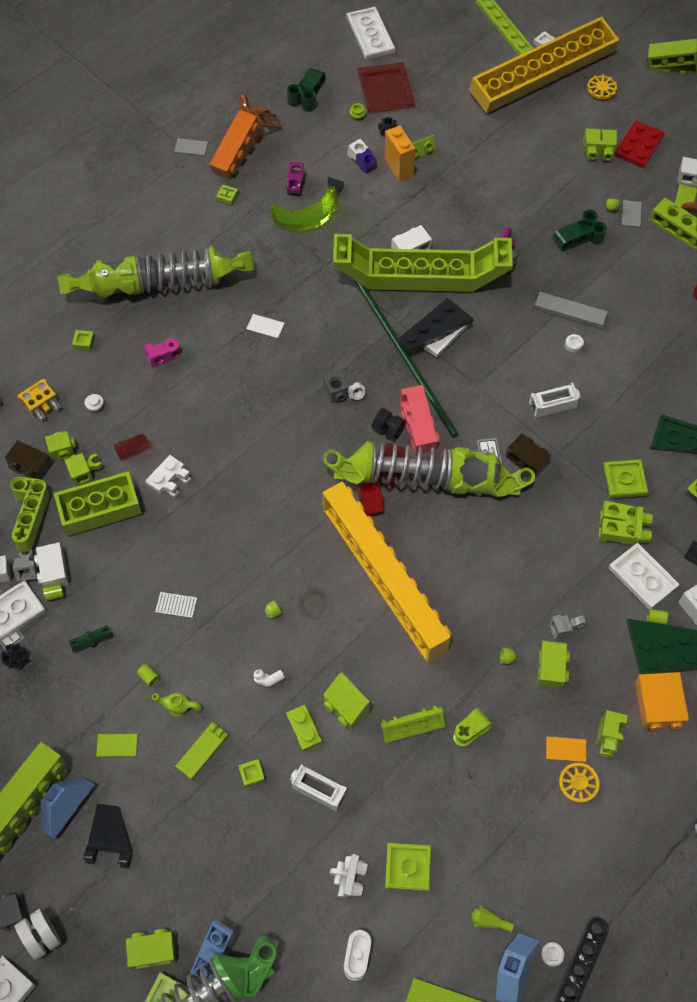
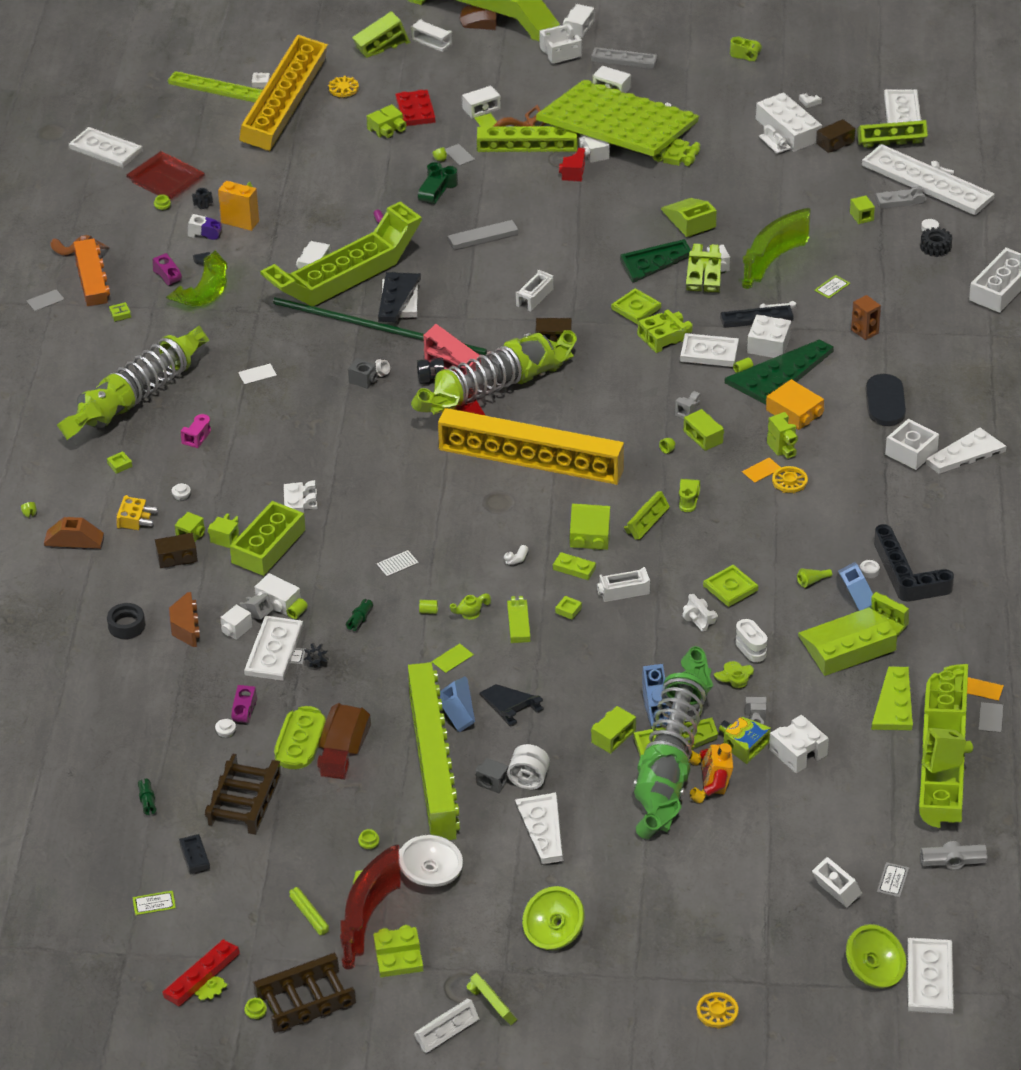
camera: 40 degrees left, 20 degrees down
(32, 494) = (212, 565): lime beam -> none
(131, 446) = (246, 497): clear red hinge -> none
(272, 610) = (474, 518): lime hinge -> none
(306, 90) = (102, 211): dark green piece -> none
(316, 972) = (735, 674): none -> lime plate
(574, 343) = (508, 252): white tile -> none

